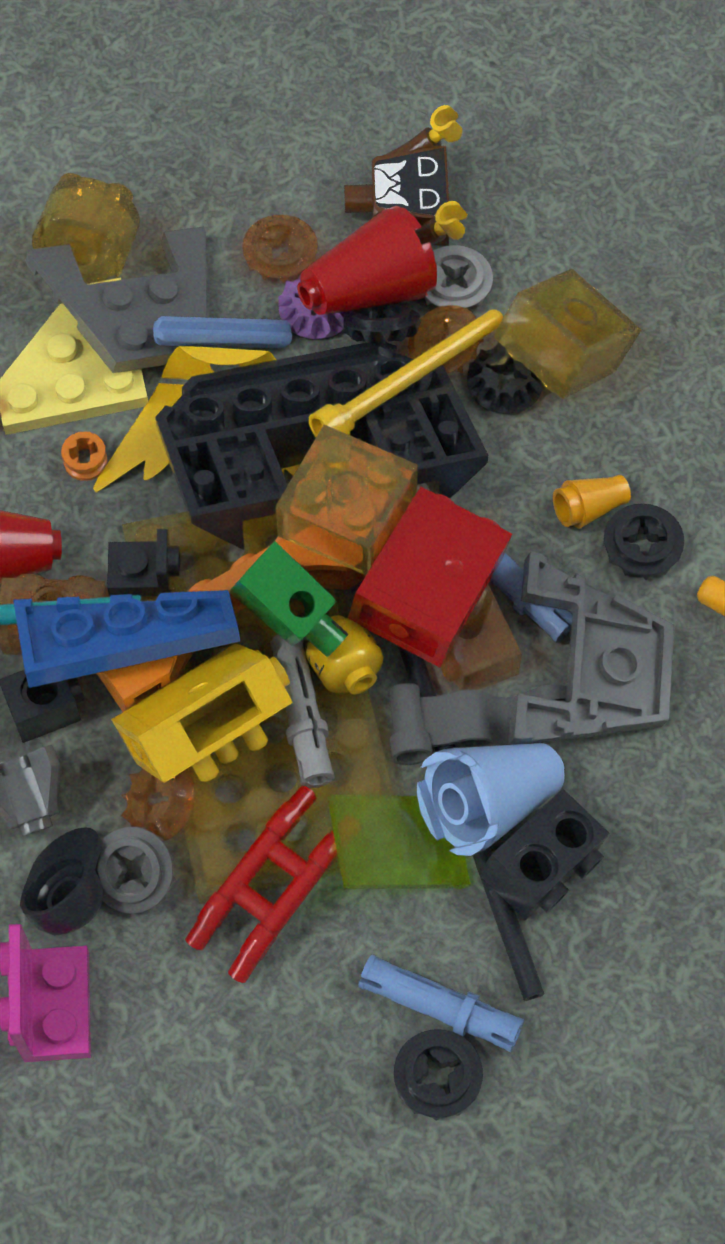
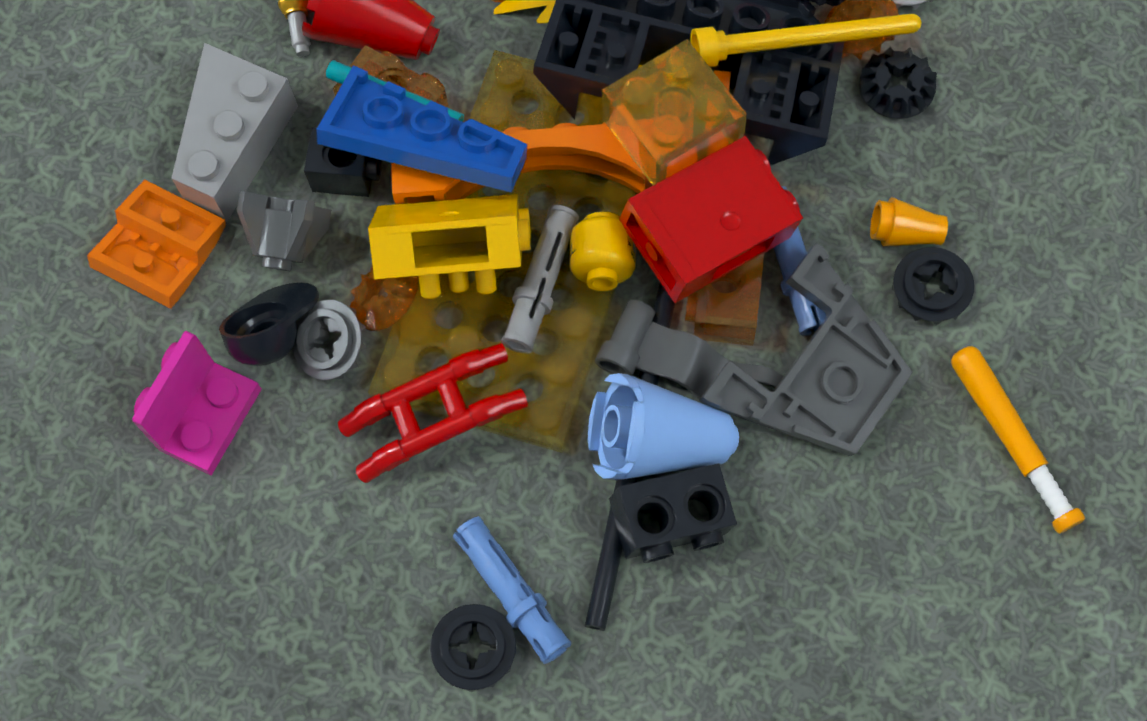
camera: 35 degrees right, 5 degrees up
(142, 566) = (484, 92): black bracket -> none
(267, 593) = (563, 156): green torso -> none
(389, 846) = (545, 433): clear neon green piece -> none
(566, 333) = (970, 66): clear yellow brick -> none

